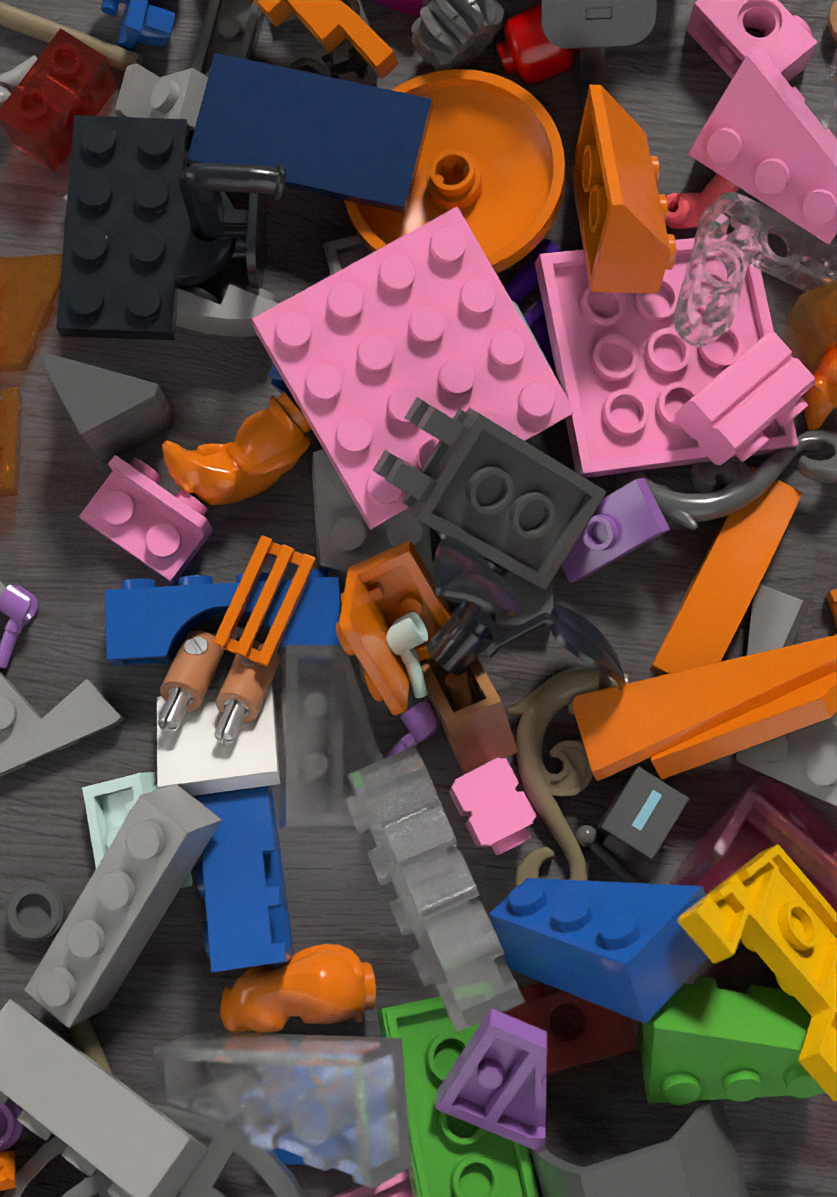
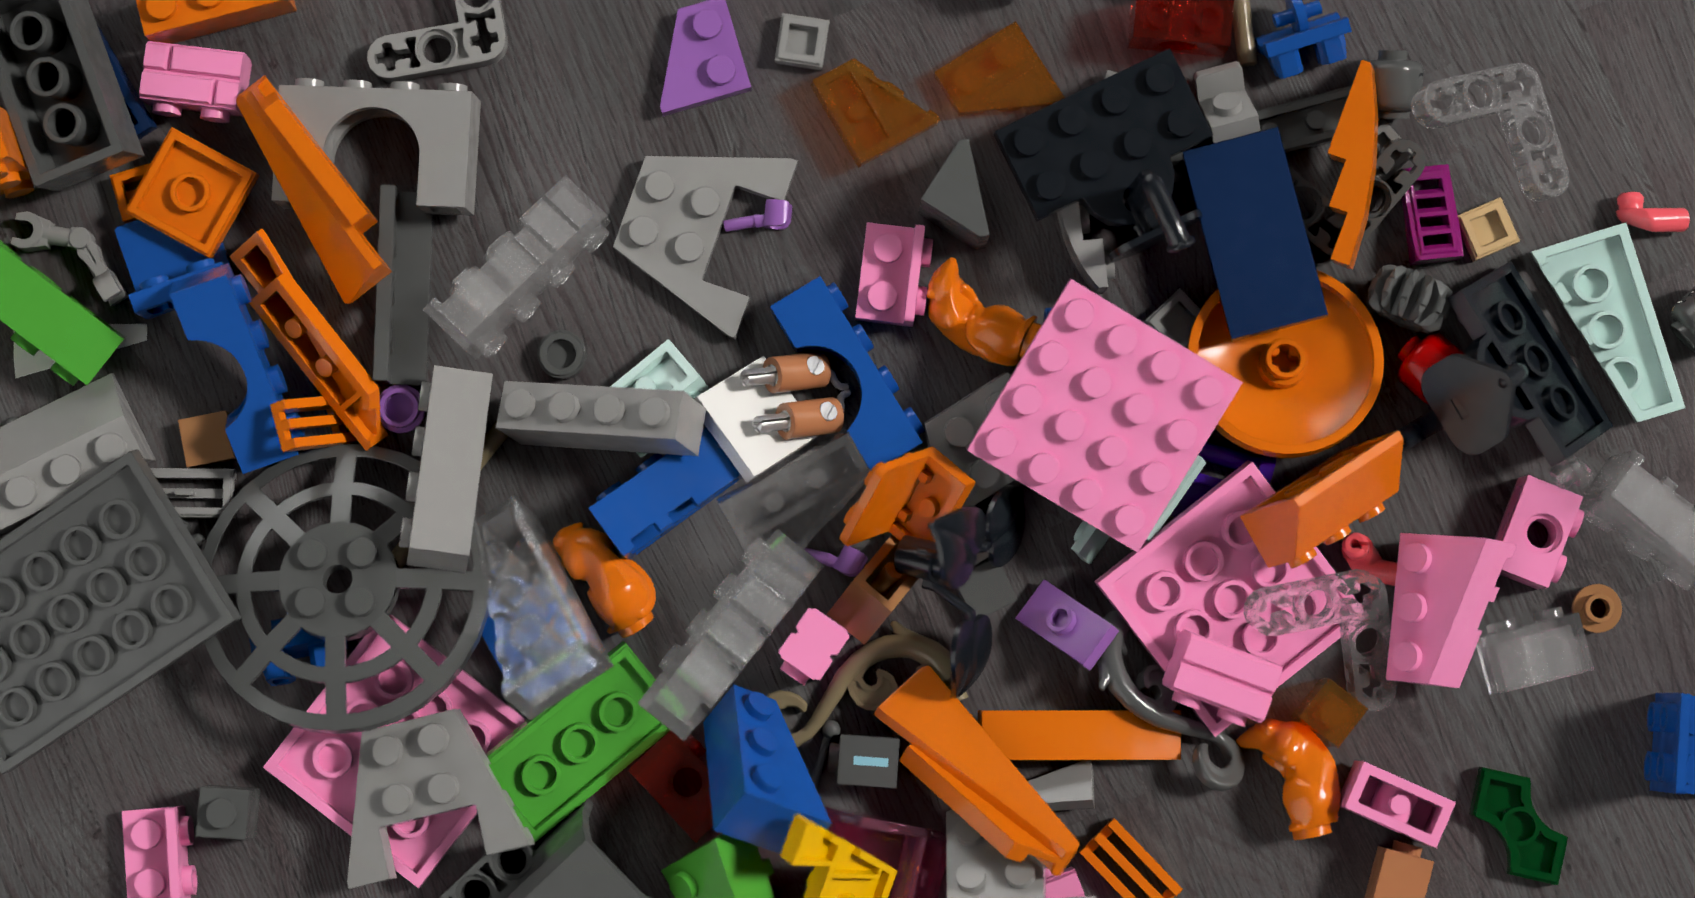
camera: 60 degrees right, 5 degrees up
(243, 593) = (914, 395): orange tile -> none
(402, 638) = (900, 515): light aqua hand -> none
(494, 492) = (1042, 525): dark grey tile -> none
(500, 1081) = (620, 754): medium lavender wing -> none

